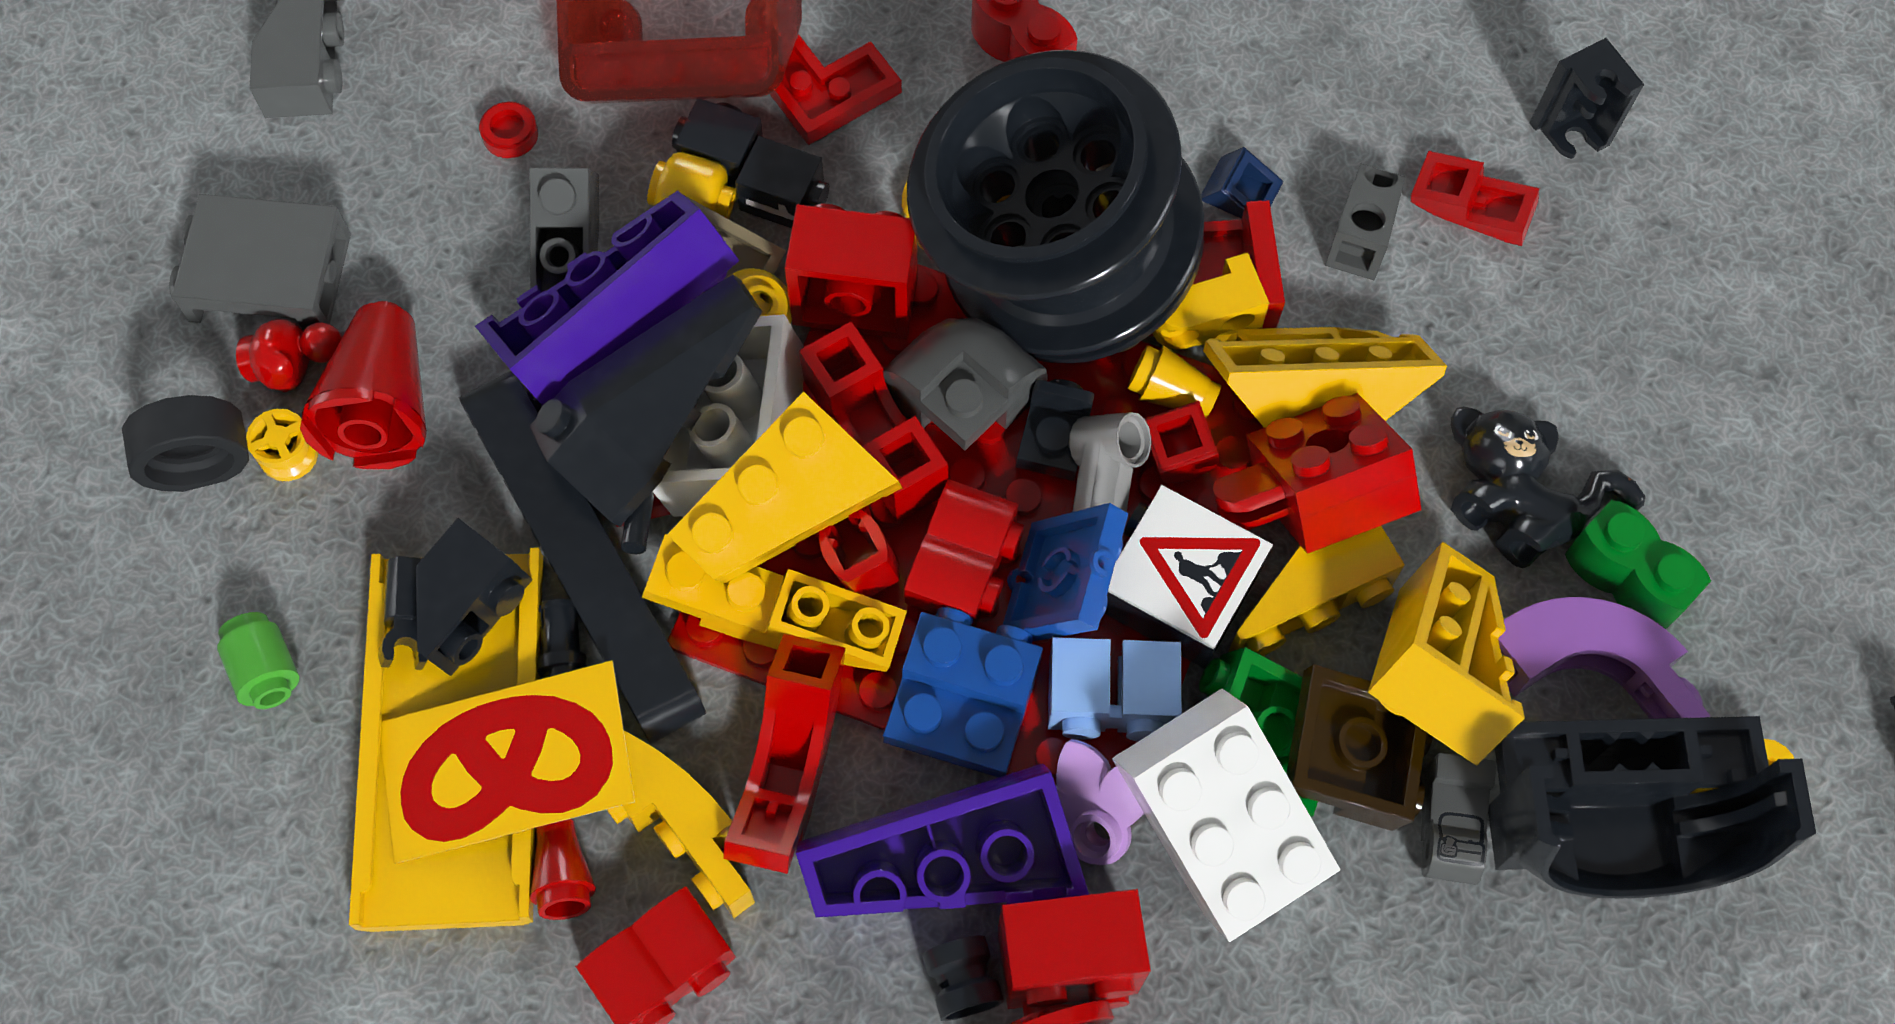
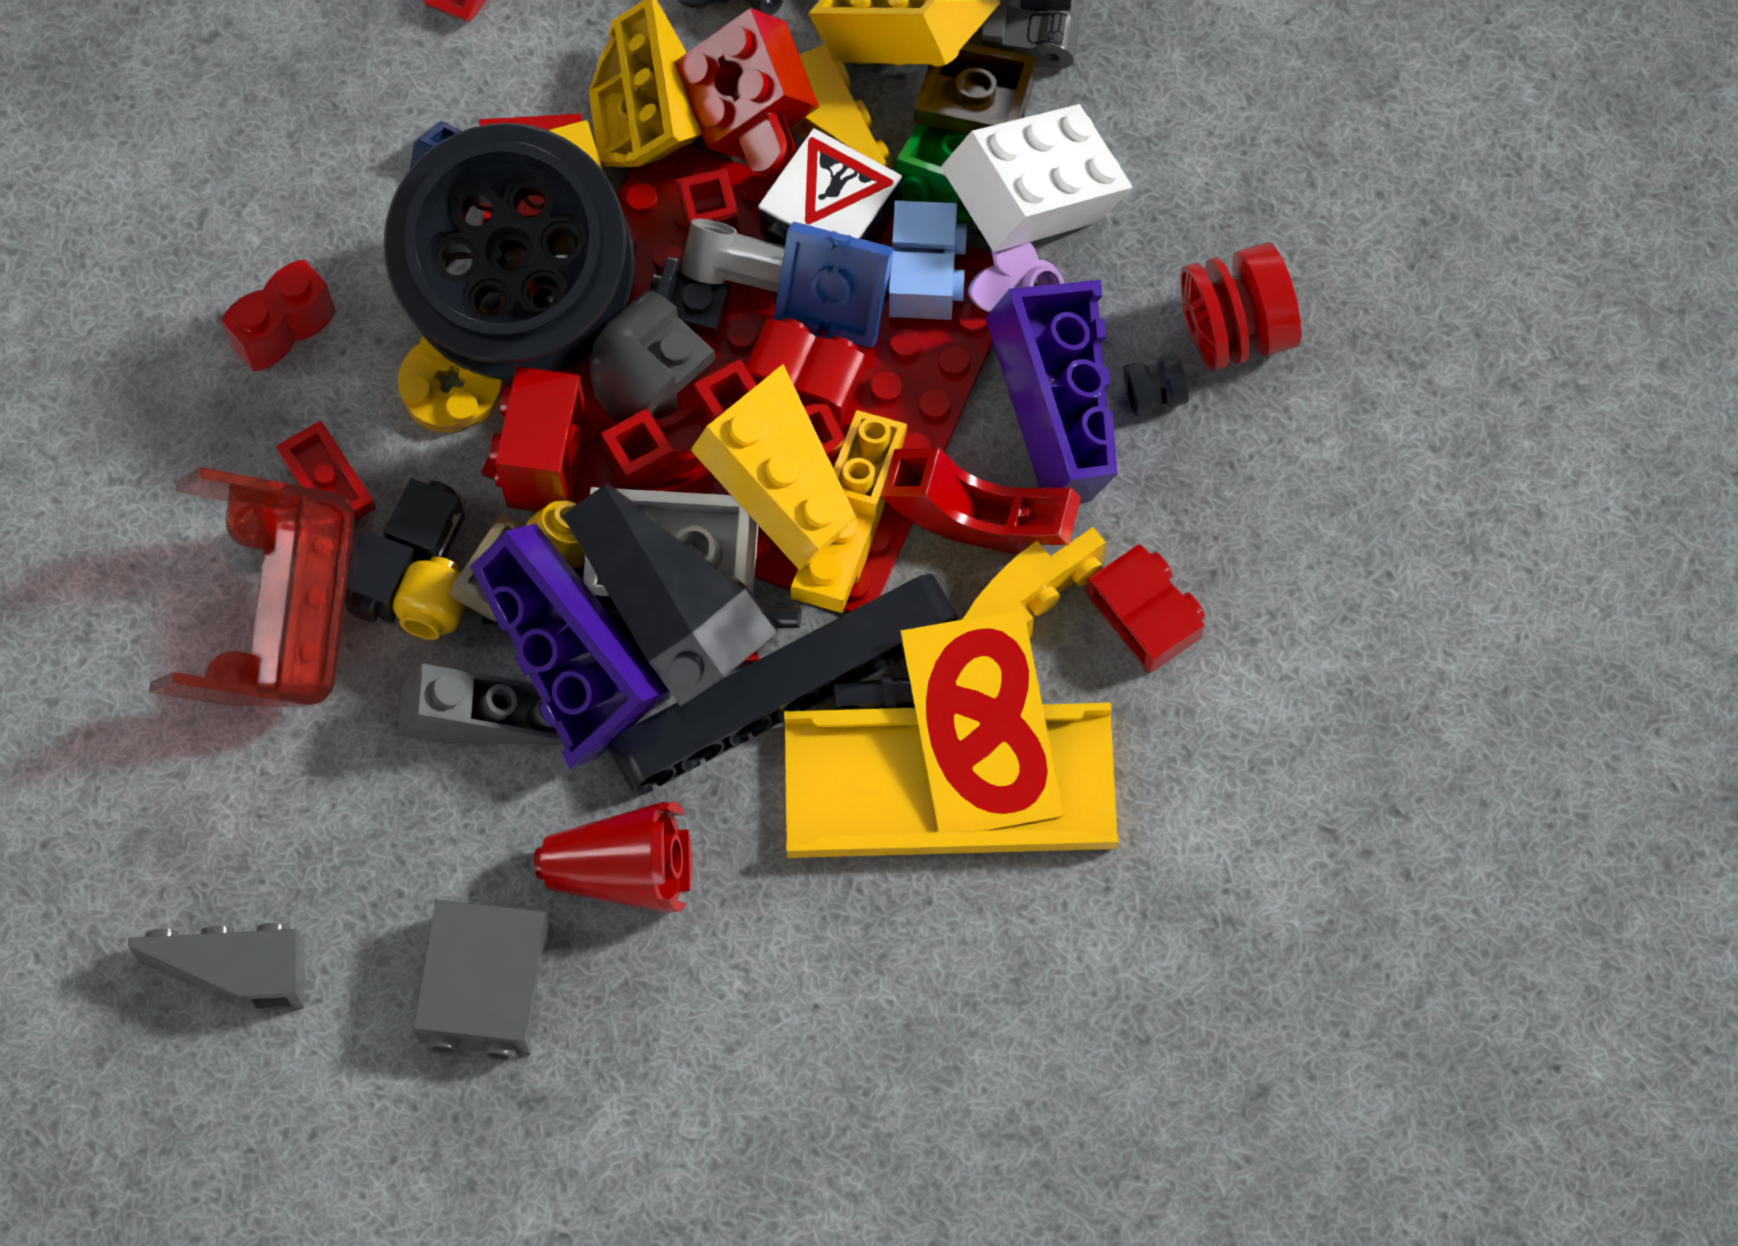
camera: 85 degrees left, 0 degrees up
(185, 443) = (677, 1013): black tyre -> none
(257, 660) = (882, 944): bright green brick -> none
(272, 434) = (667, 933): yellow wheel -> none
(282, 351) = (578, 954): red animal -> none
(400, 610) = (845, 813): black bar -> none
(462, 594) = (830, 760): black slope -> none
(508, 129) = (339, 774): red tile -> none
(560, 873) = (1073, 683): red cone -> none
(964, 692) = (923, 374): blue plate -> none
(1073, 950) = (1142, 293): red brick -> none
(1170, 381) = (650, 206): yellow cone -> none
(1366, 222) = (491, 53): dark grey leg -> none

